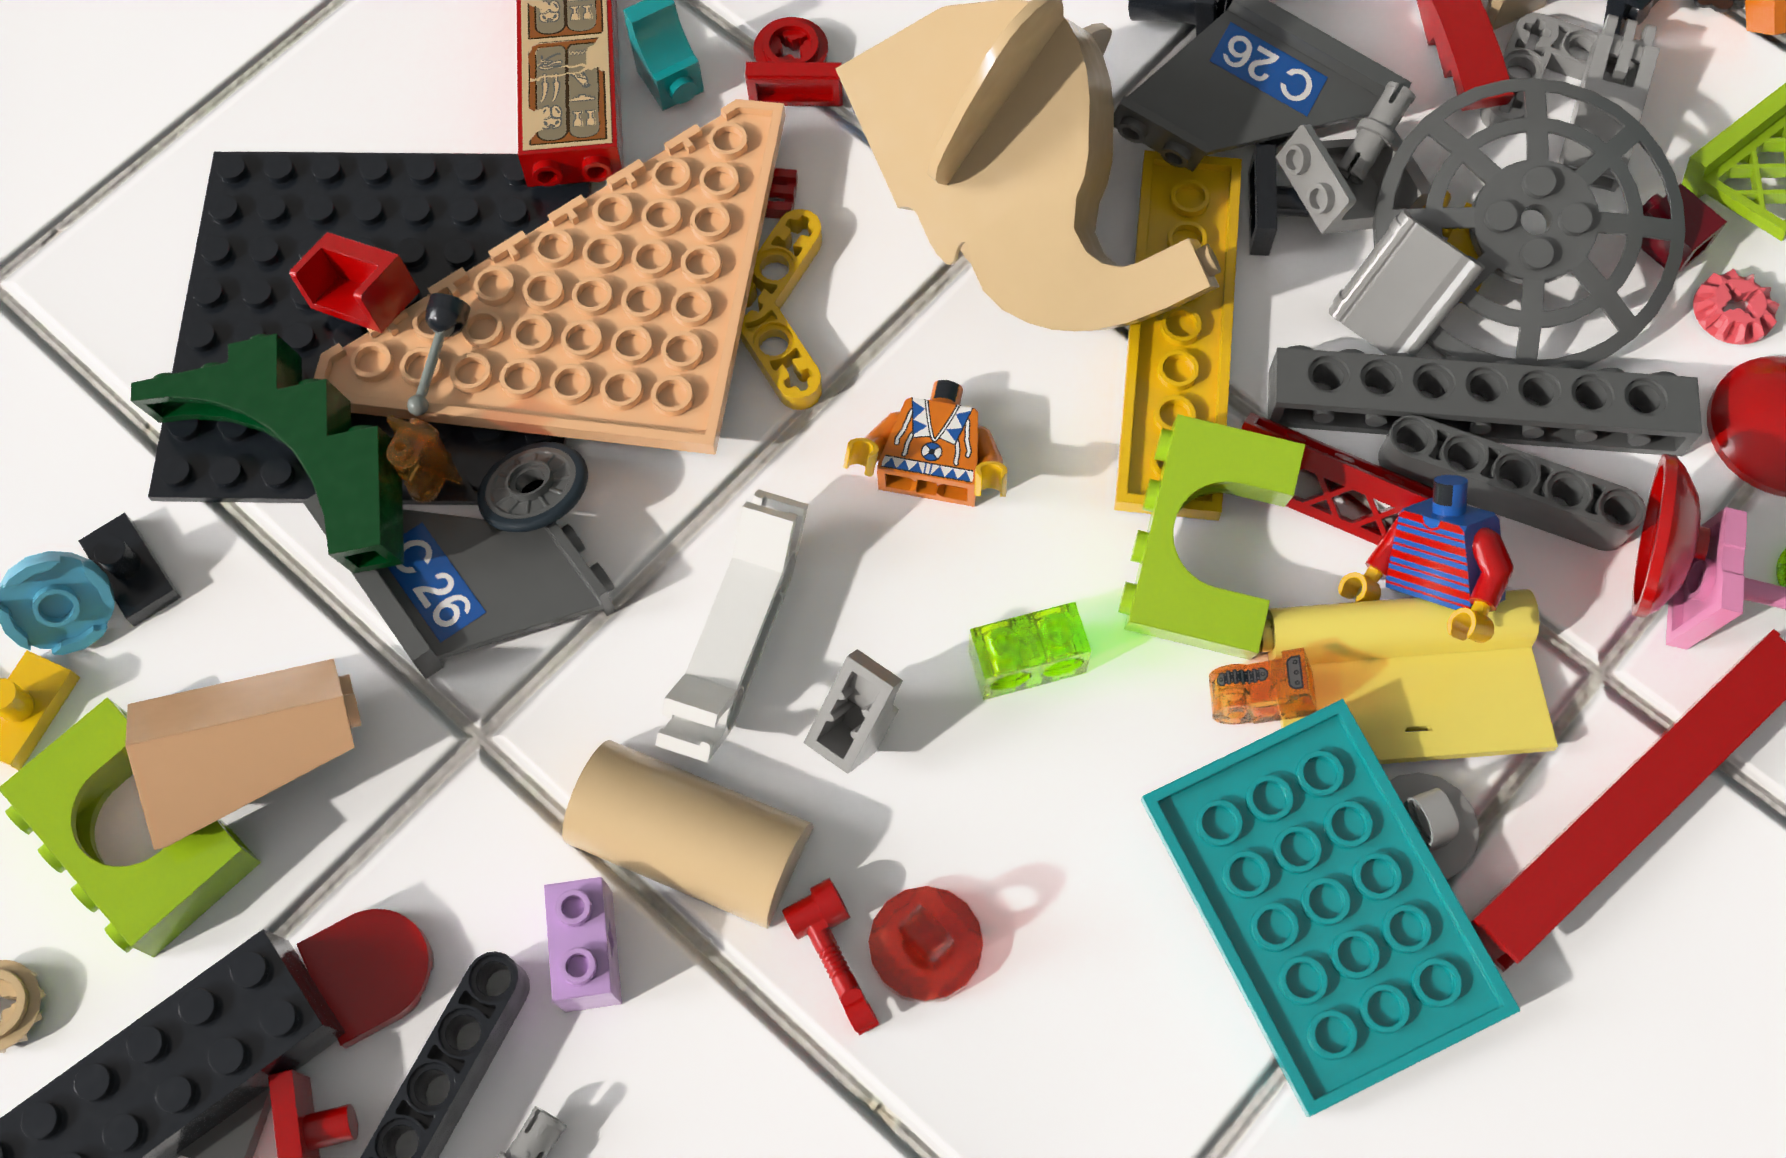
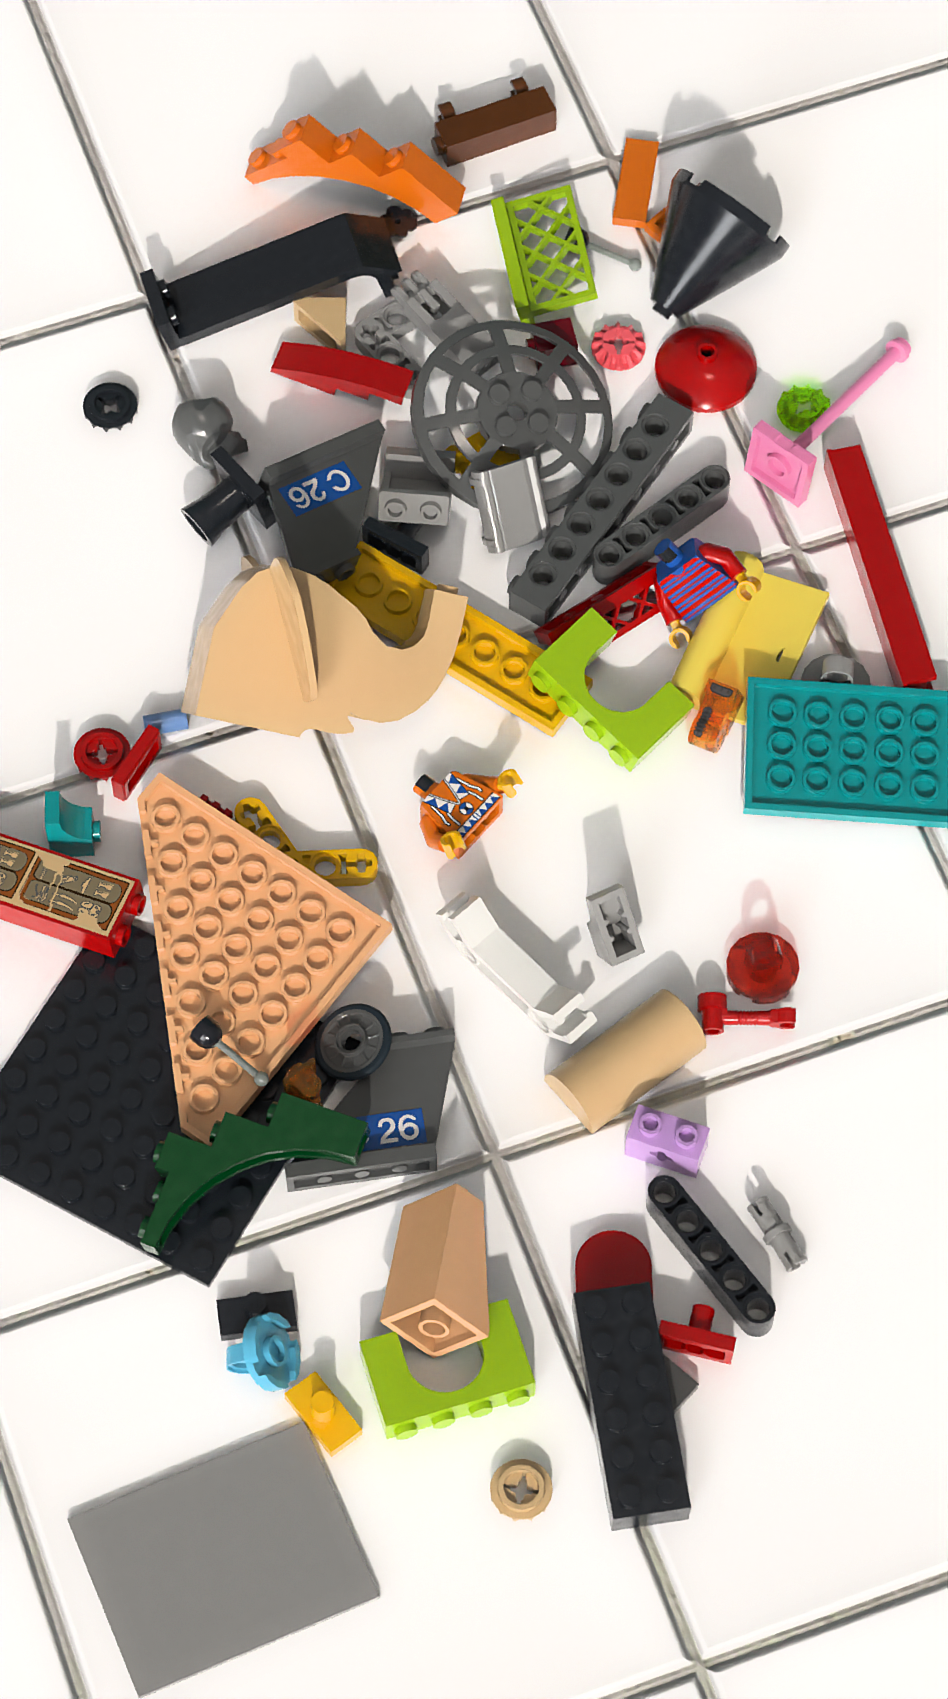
camera: 65 degrees left, 5 degrees down
(354, 282) = (142, 1081): red panel -> none
(1029, 650) = (620, 824): clear neon green brick -> none
(1375, 132) = (400, 457): light grey pin -> none
(1668, 537) = (749, 468): red dish -> none

